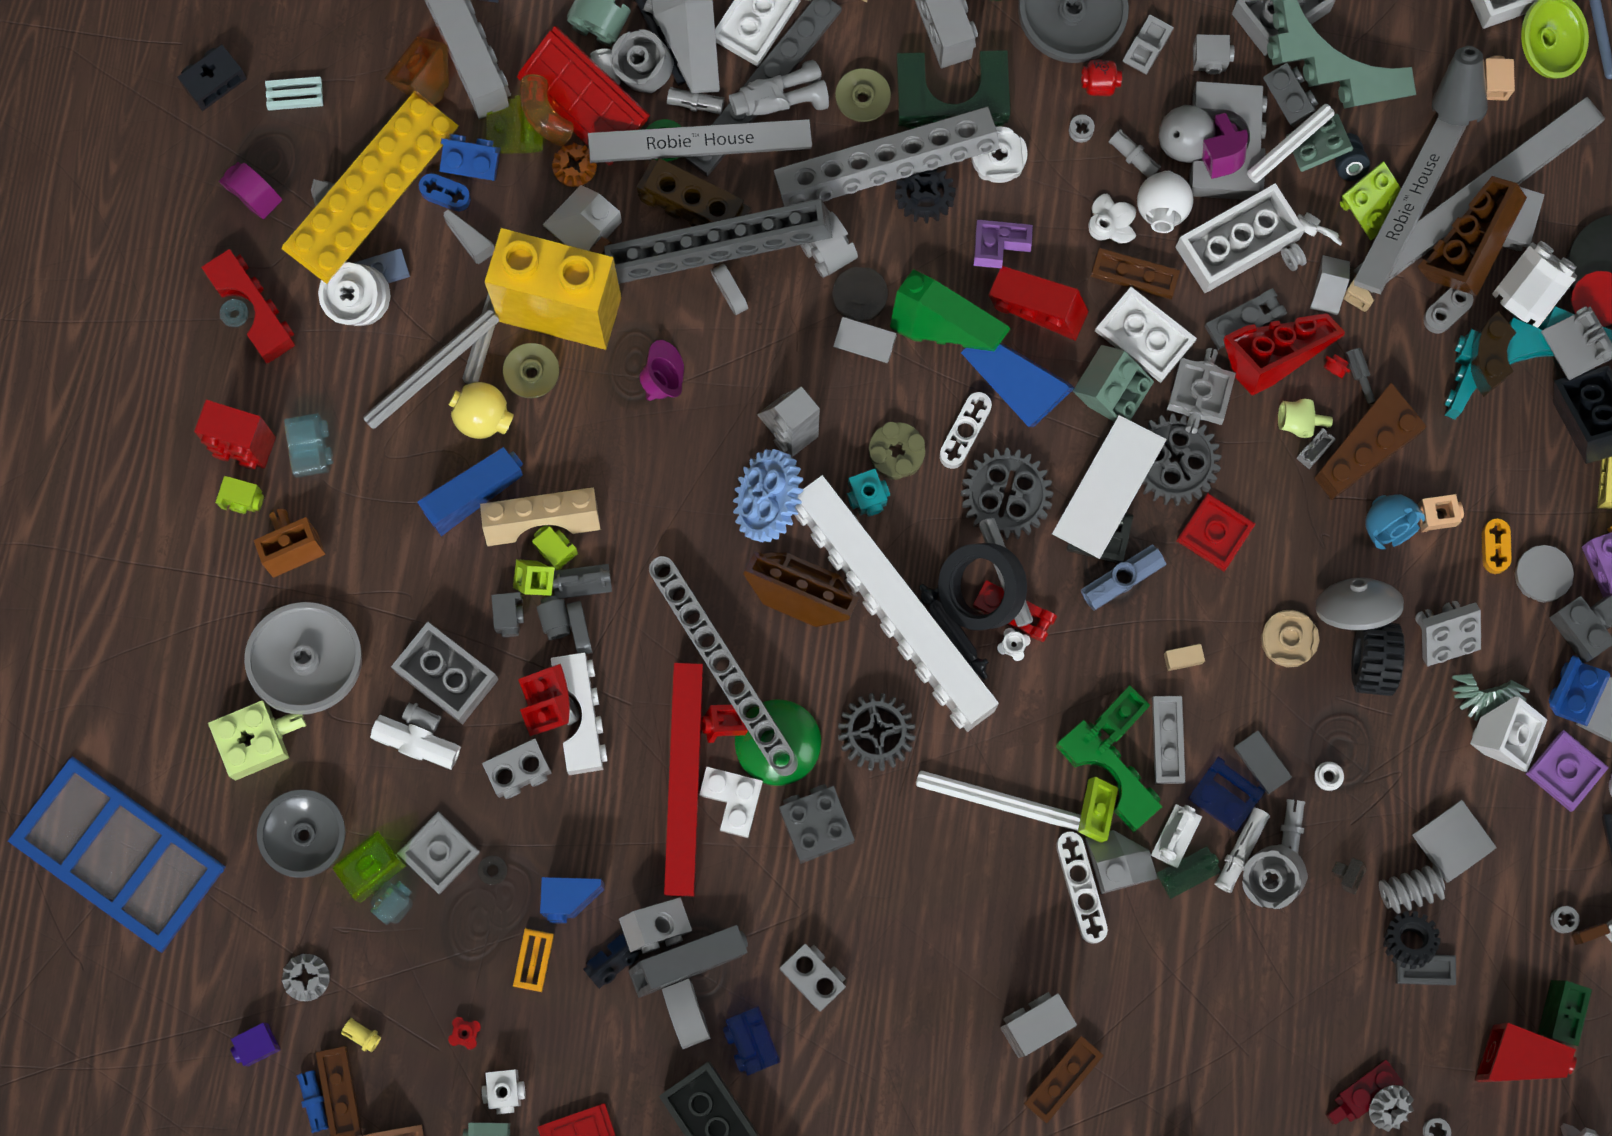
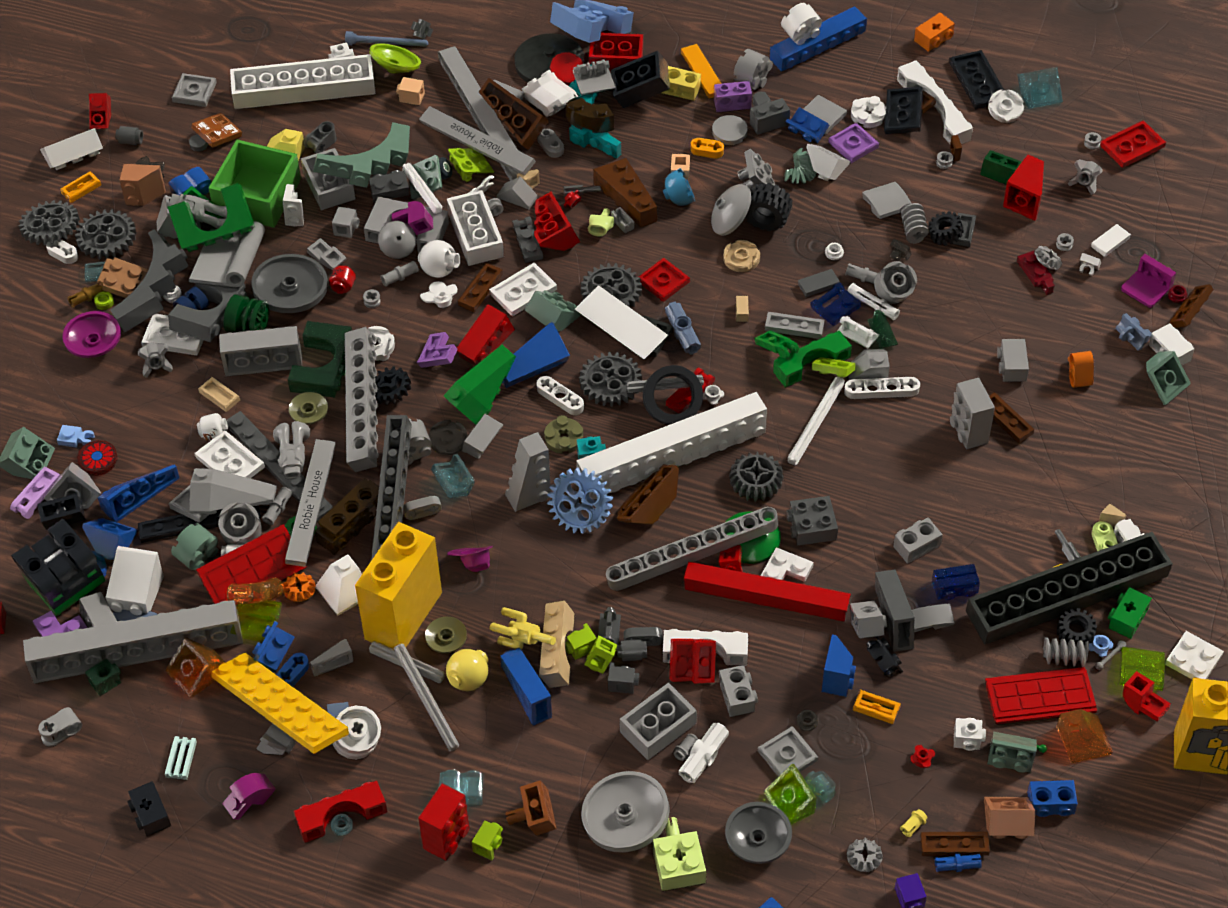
camera: 75 degrees left, 25 degrees down
(544, 465) = (520, 631): none -> light yellow plant
(786, 317) = (453, 477): none -> clear light blue bracket
(1169, 1077) = (1013, 360): none -> light grey brick
(1201, 391) = (570, 266): light grey plate -> none
(1462, 90) = (415, 101): dark grey cone -> none

